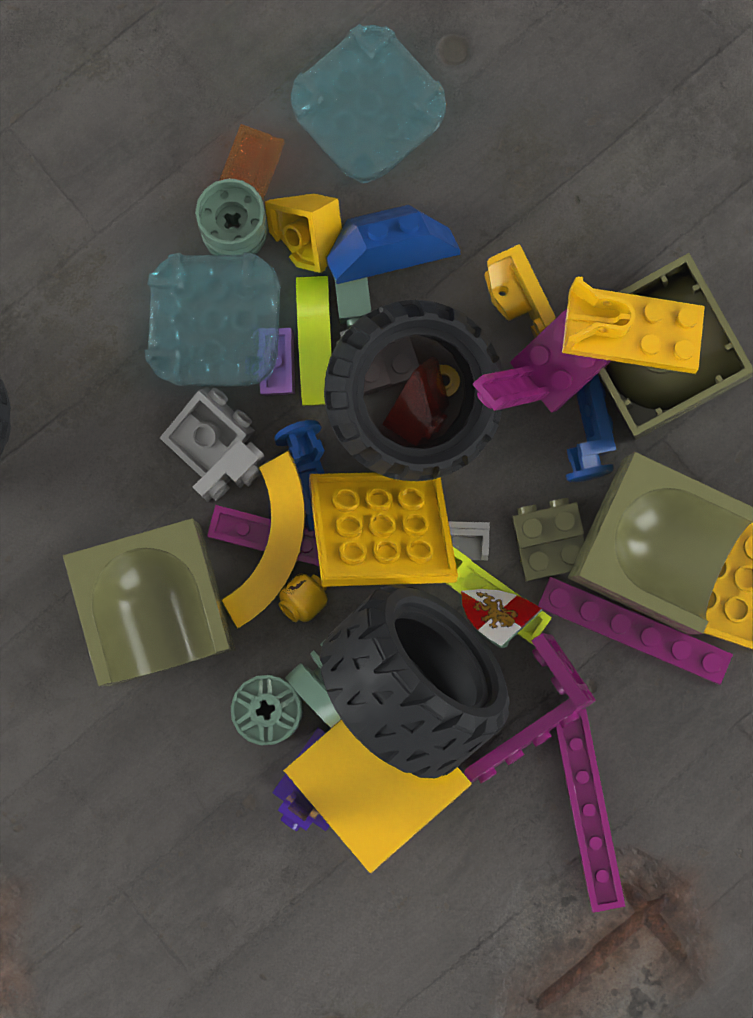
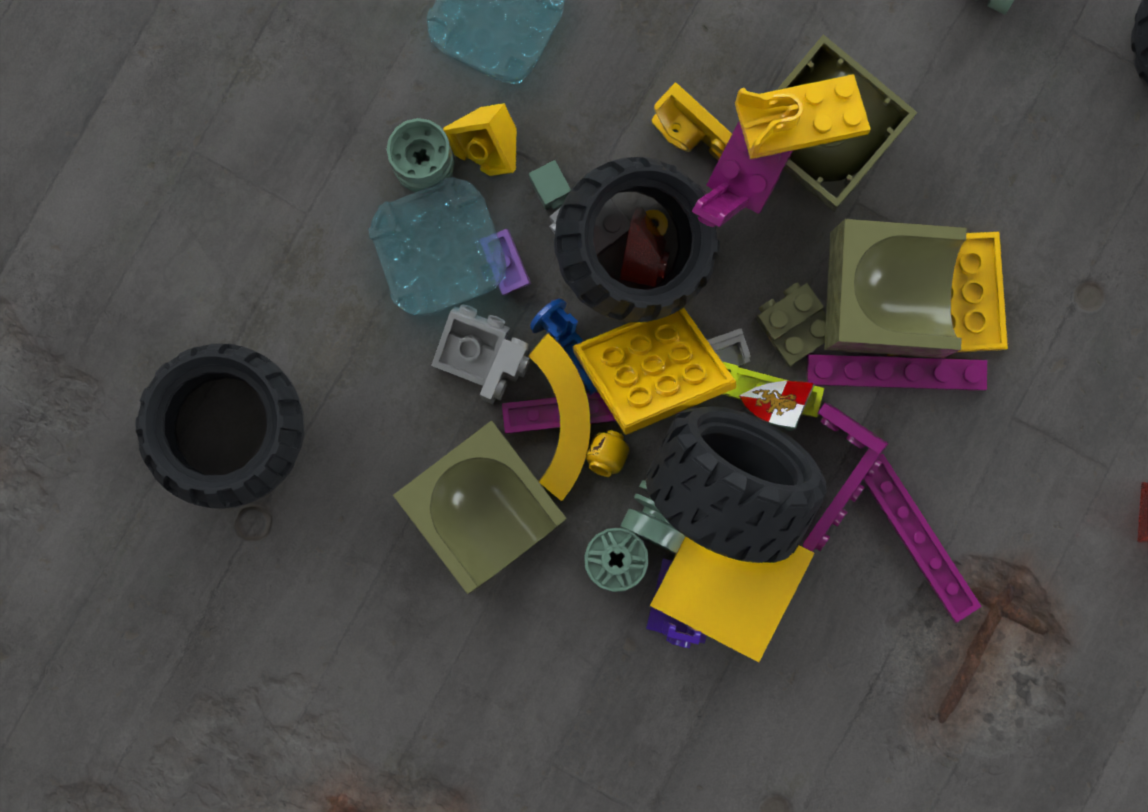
camera: 30 degrees left, 0 degrees up
(253, 158) = (416, 96): clear orange plate -> none
(313, 336) = (529, 231): neon yellow slope -> none
(388, 243) = (560, 125): blue wedge -> none
(598, 431) = (801, 217): blue piece -> none

